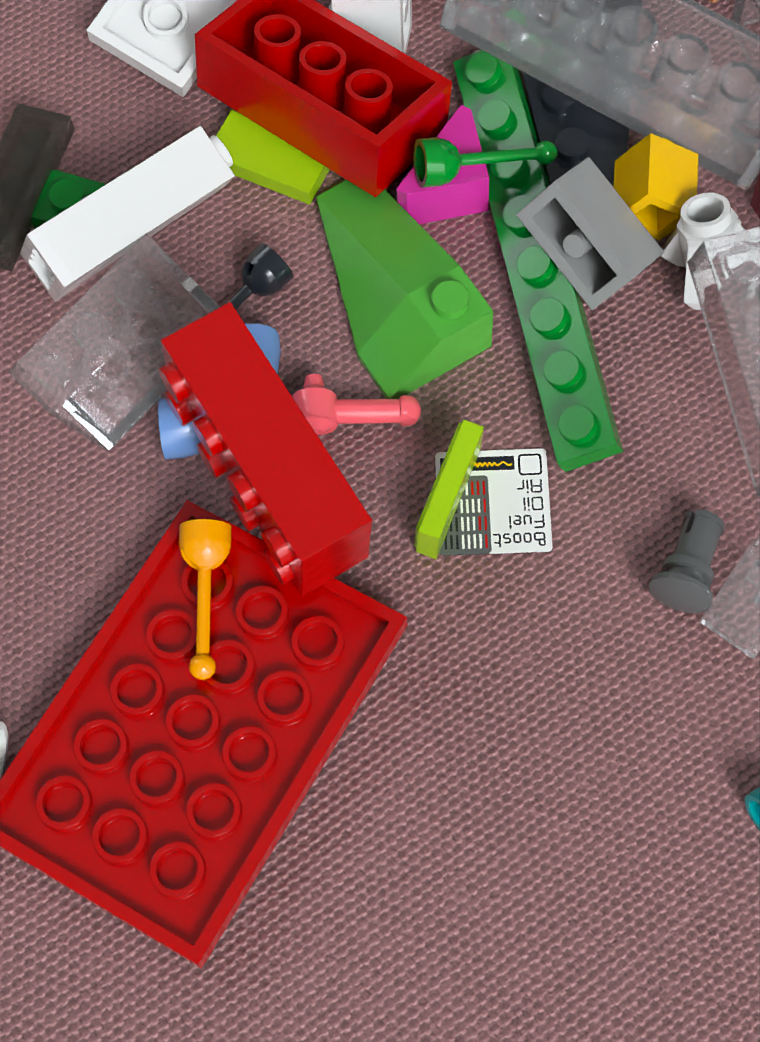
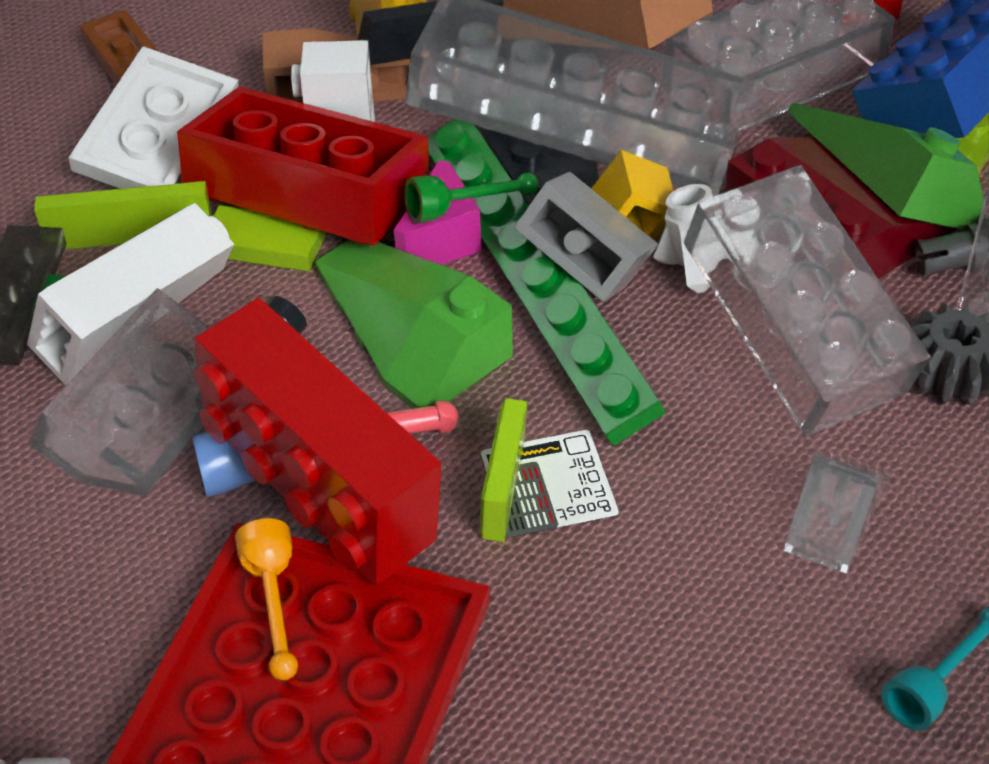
camera: 15 degrees left, 20 degrees down
(135, 108) = (116, 214): none -> lime tile
(687, 572) = (760, 504): dark grey pin -> none

